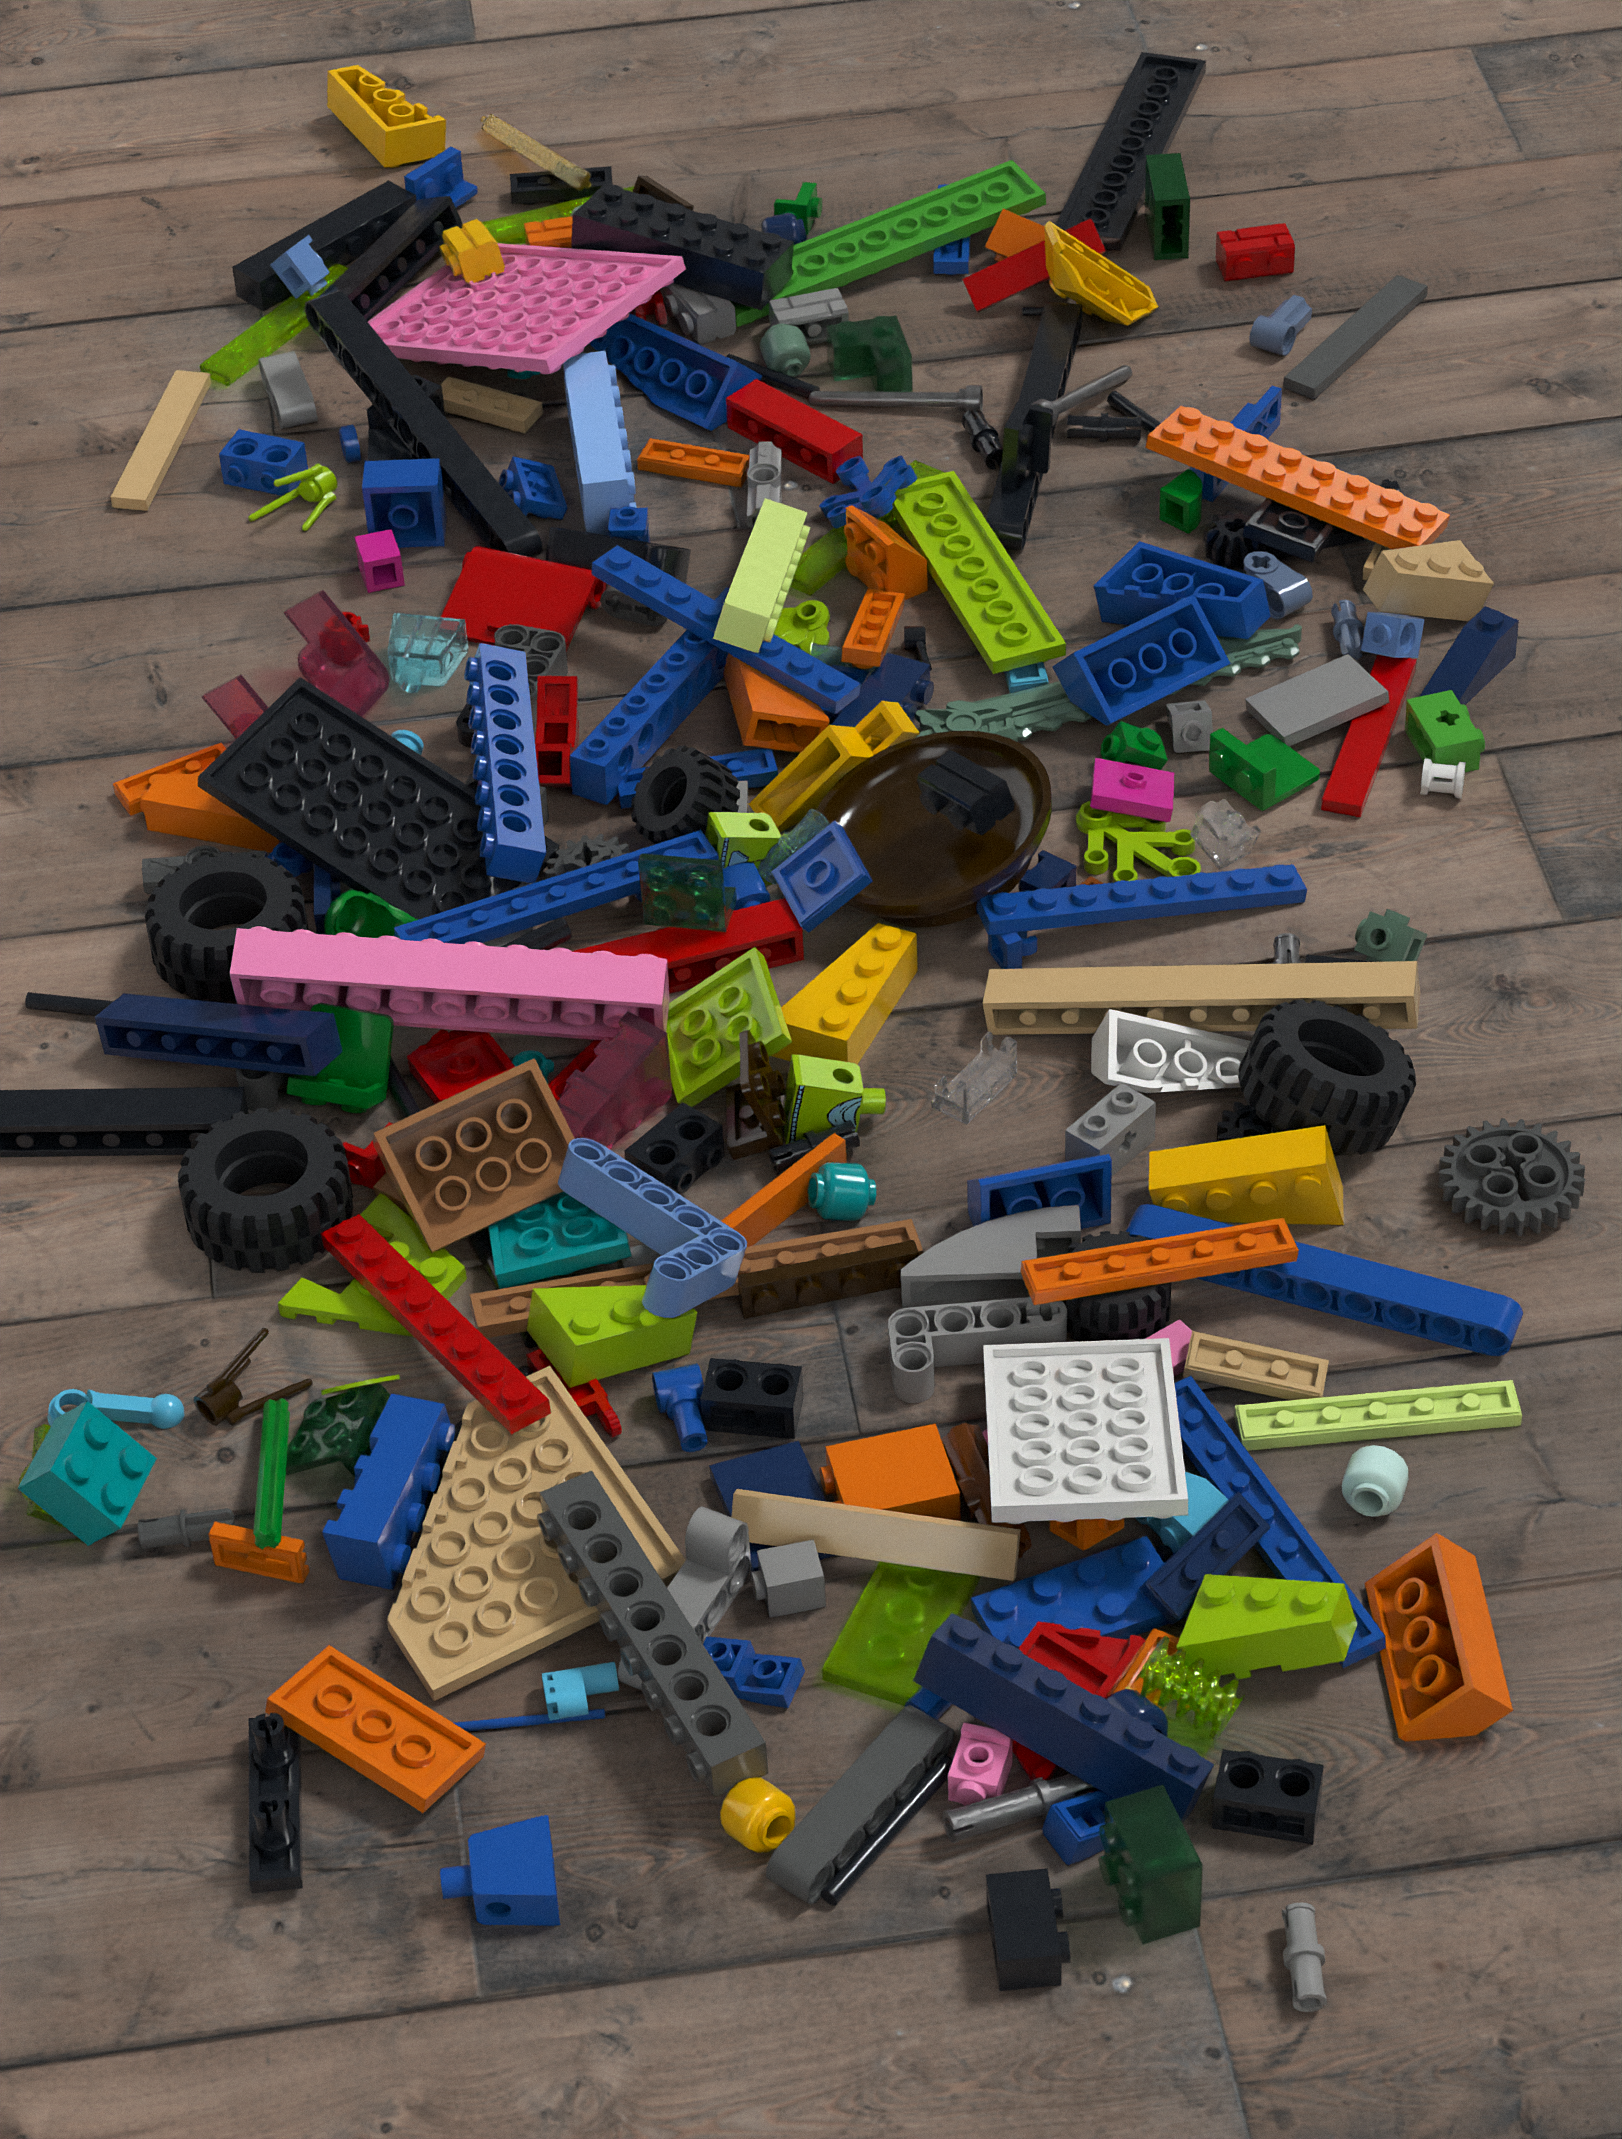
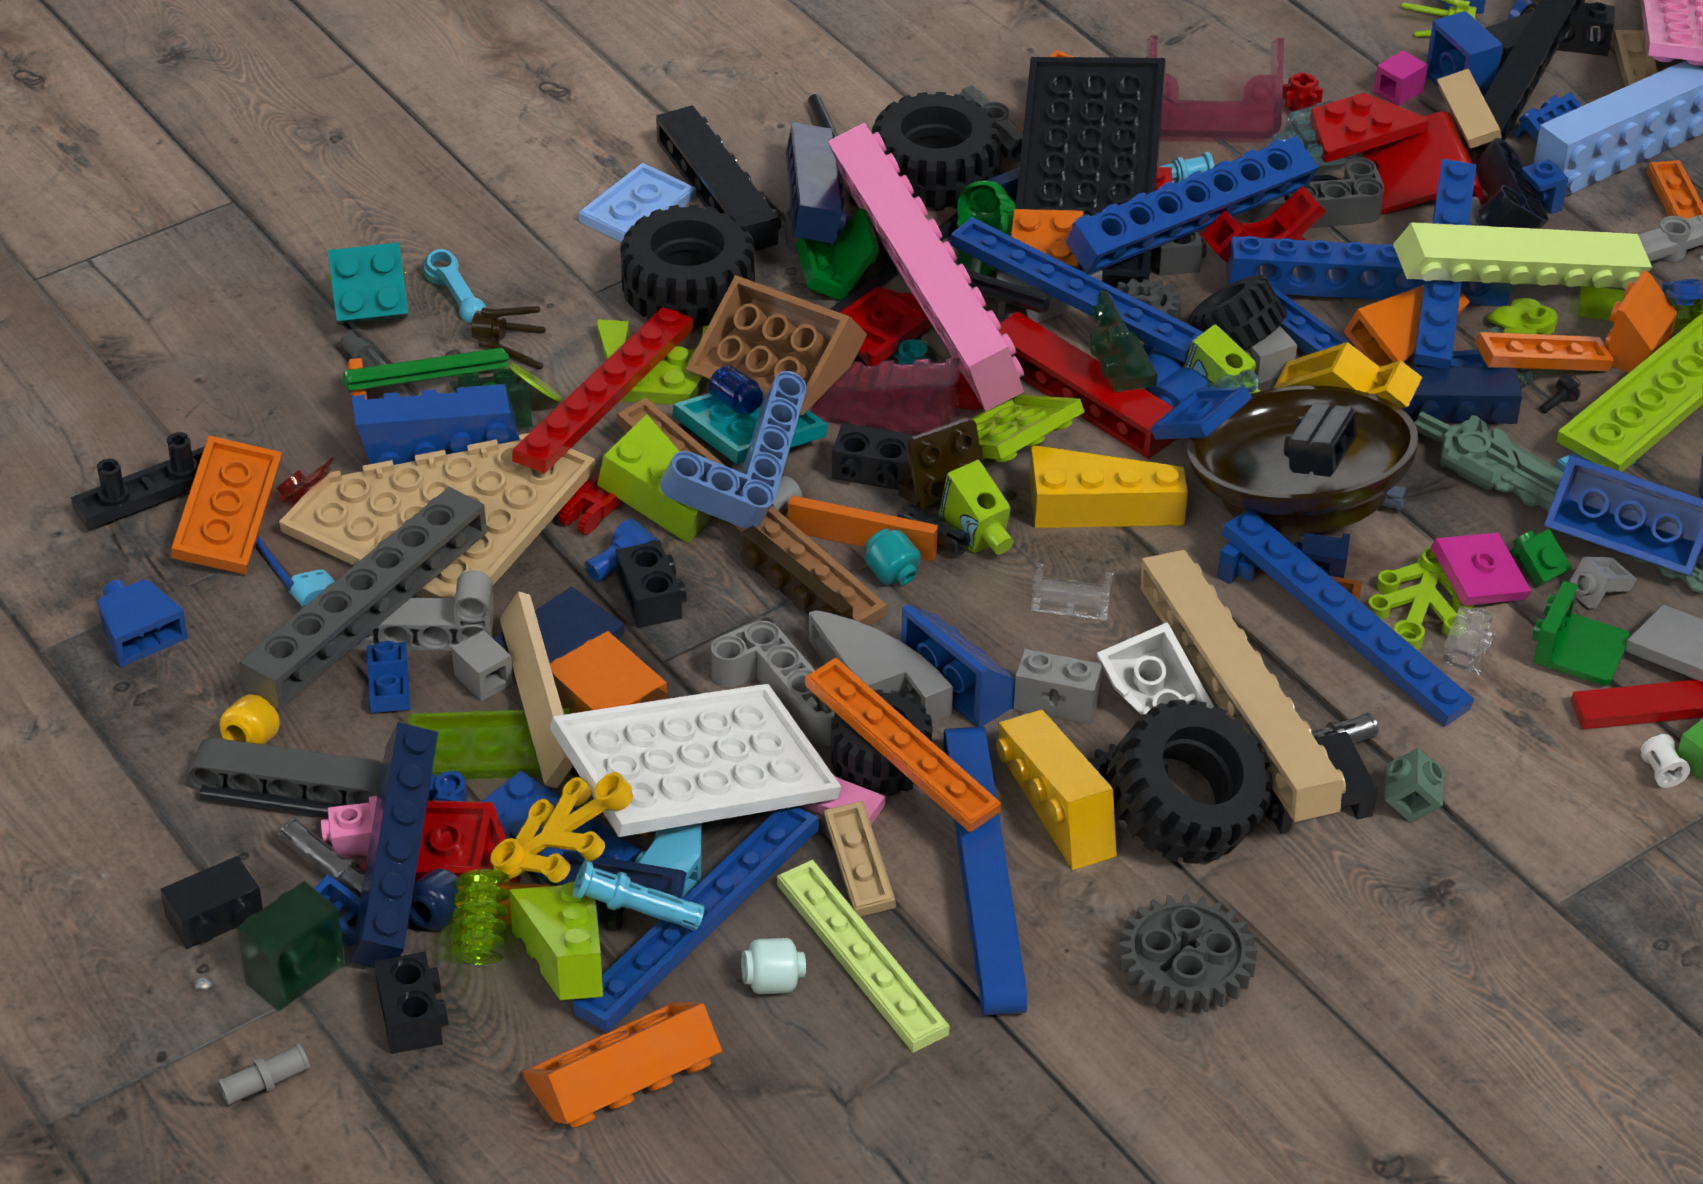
camera: 60 degrees right, 0 degrees up
(92, 1208) = (632, 198): none -> light blue tile
(388, 1639) = (299, 485): none -> clear red plate
(447, 883) = (1046, 231): none -> orange plate
(453, 607) = (1362, 124): none -> red wing
(489, 528) = (1469, 108): none -> tan tile
(523, 1211) = (736, 389): none -> clear blue brick
(1148, 1566) = (518, 854): none -> yellow plant
(1255, 1544) = (620, 892): none -> medium azure pin

